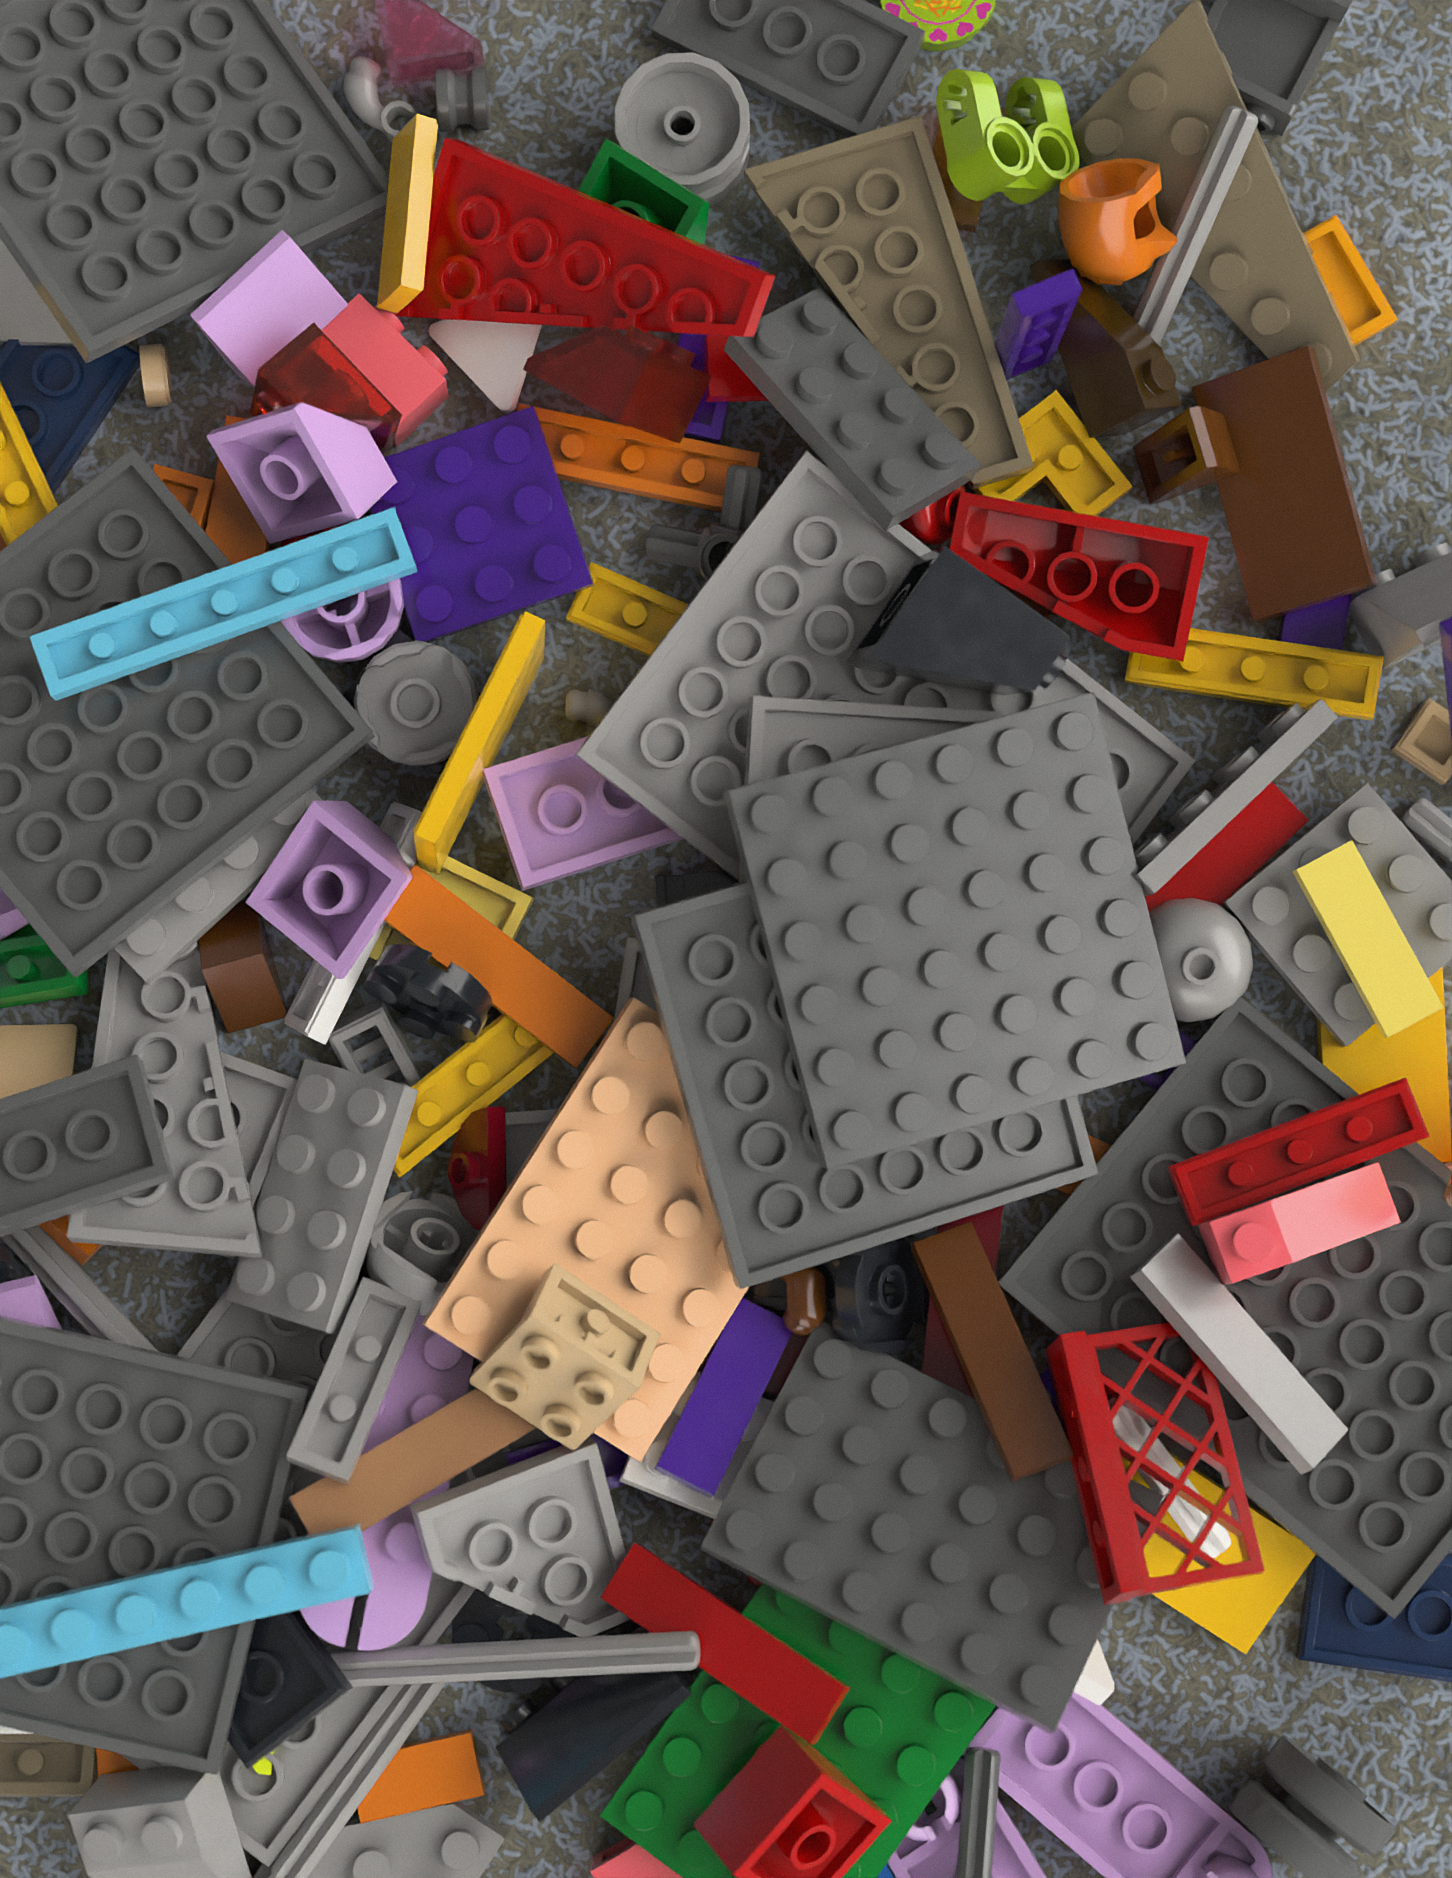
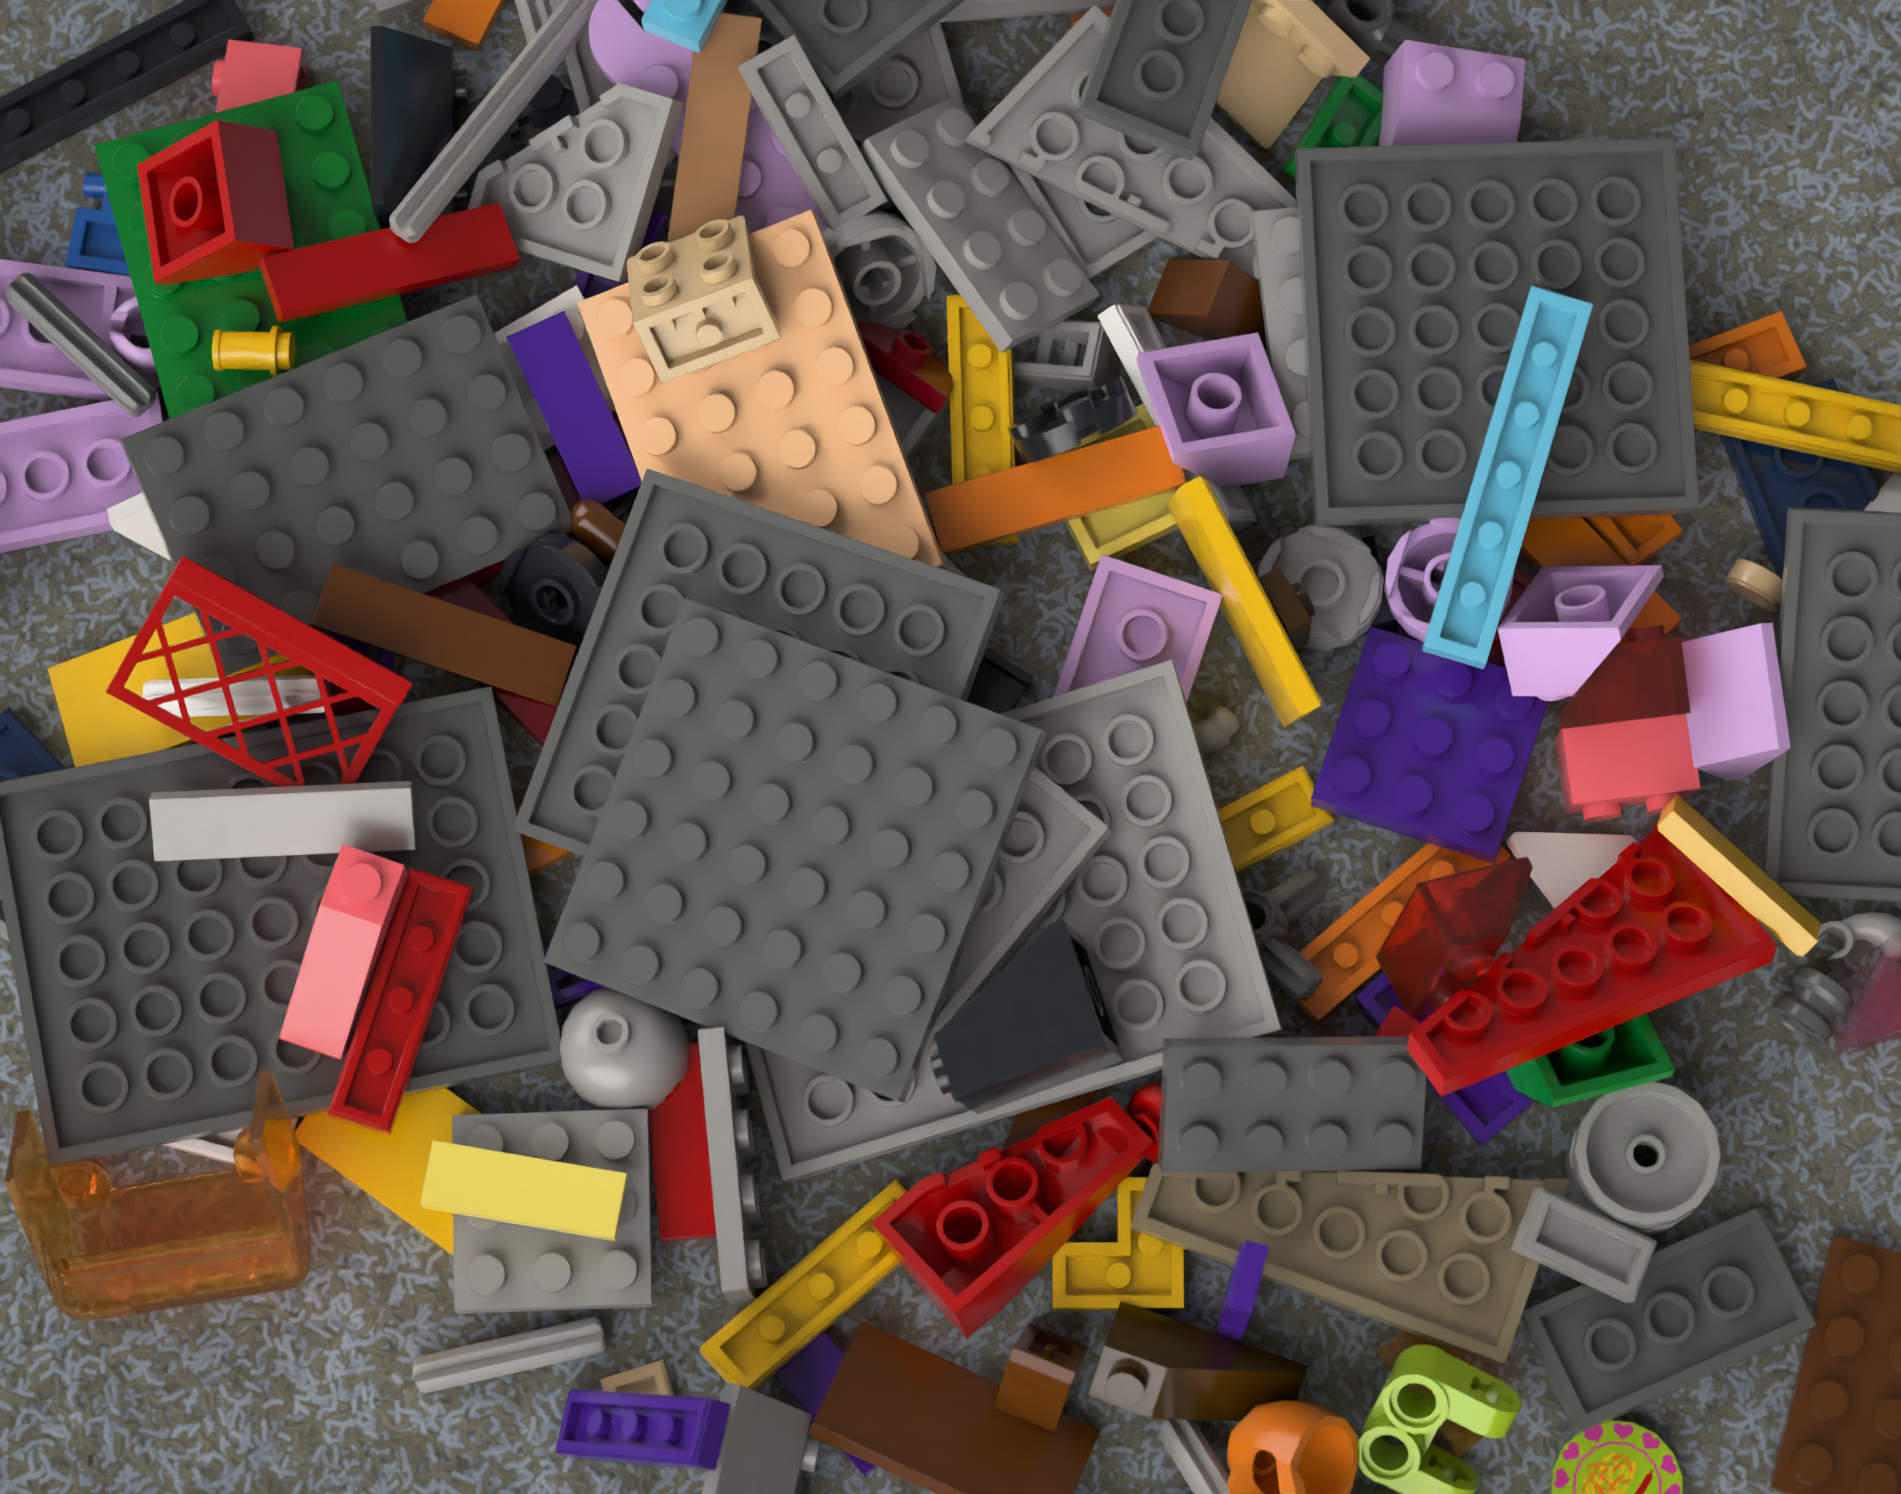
camera: 130 degrees right, 10 degrees down
(458, 701) = (1290, 605): none -> dark brown plate
(786, 122) = (1583, 1245): none -> light grey tile
(886, 1689) = (254, 350): none -> yellow pin

